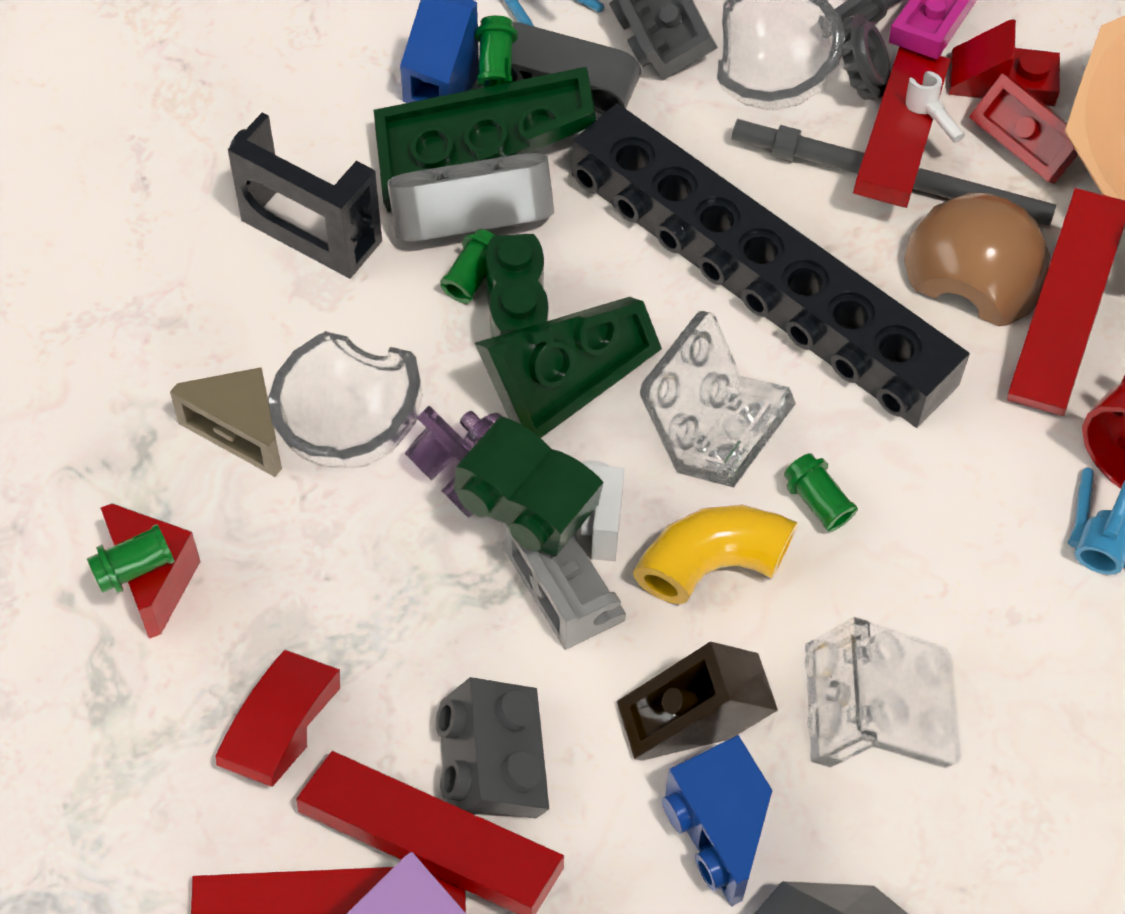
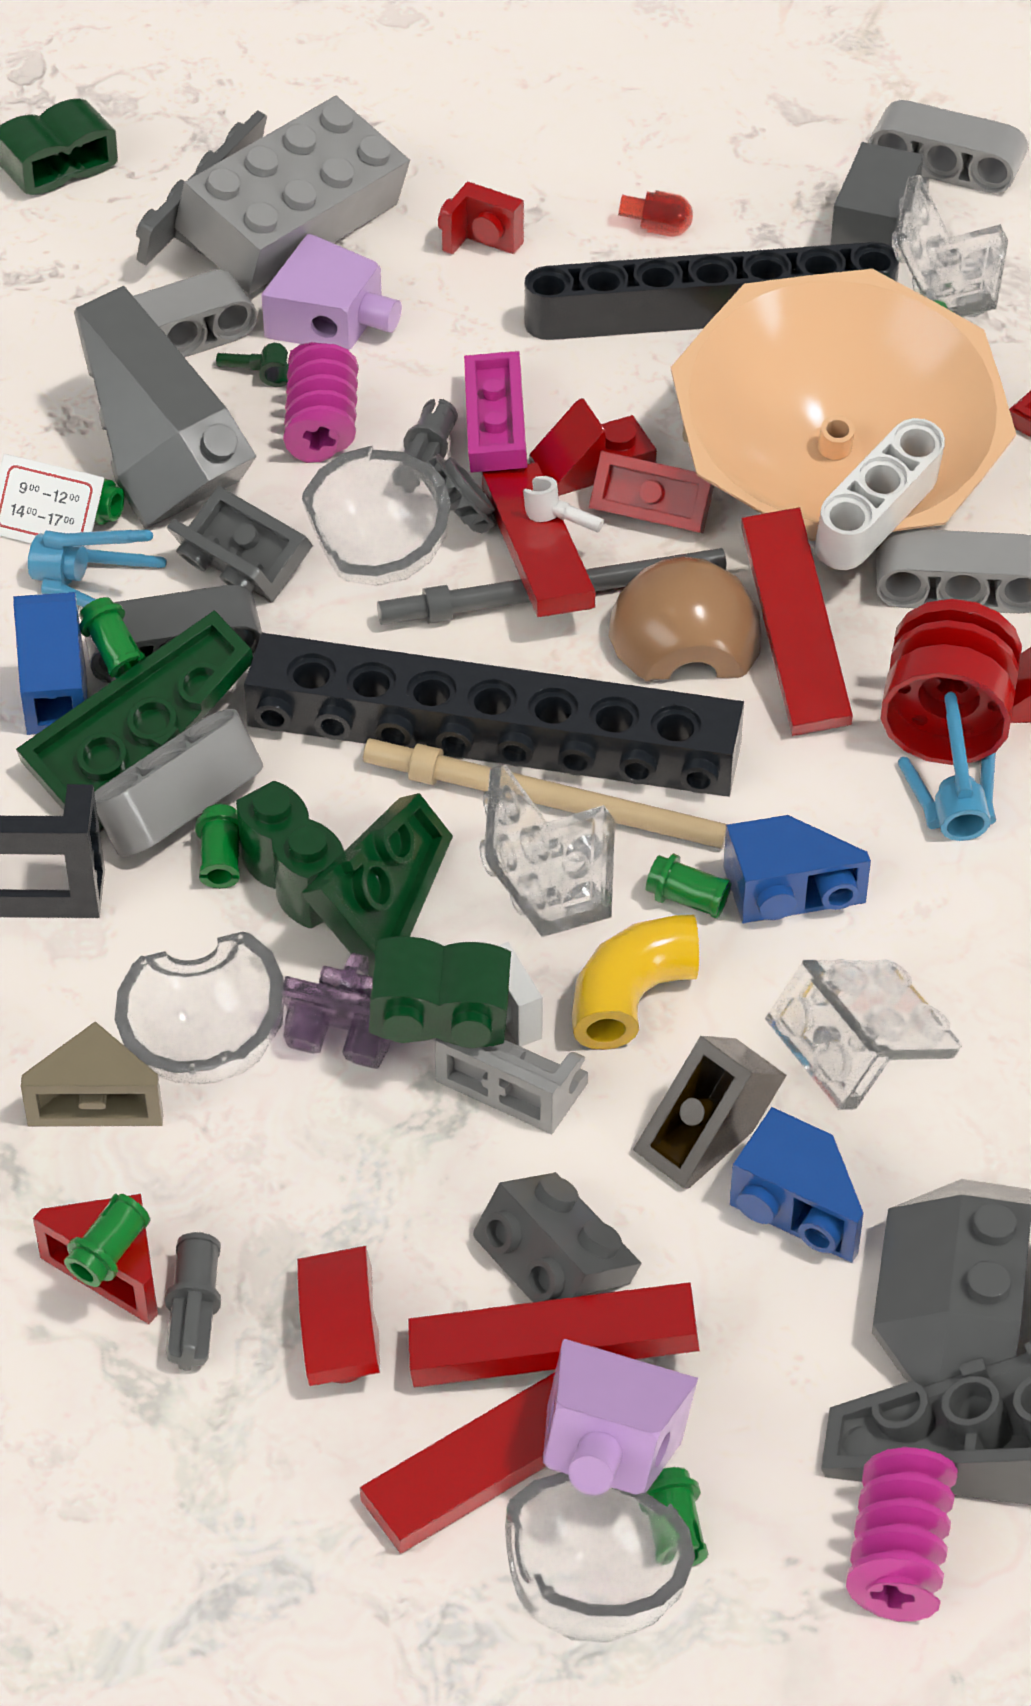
camera: 30 degrees left, 10 degrees down
(184, 640) = (193, 1300): none -> dark grey axle
(685, 279) = (428, 765): none -> tan bar
(915, 523) = (791, 869): none -> blue slope

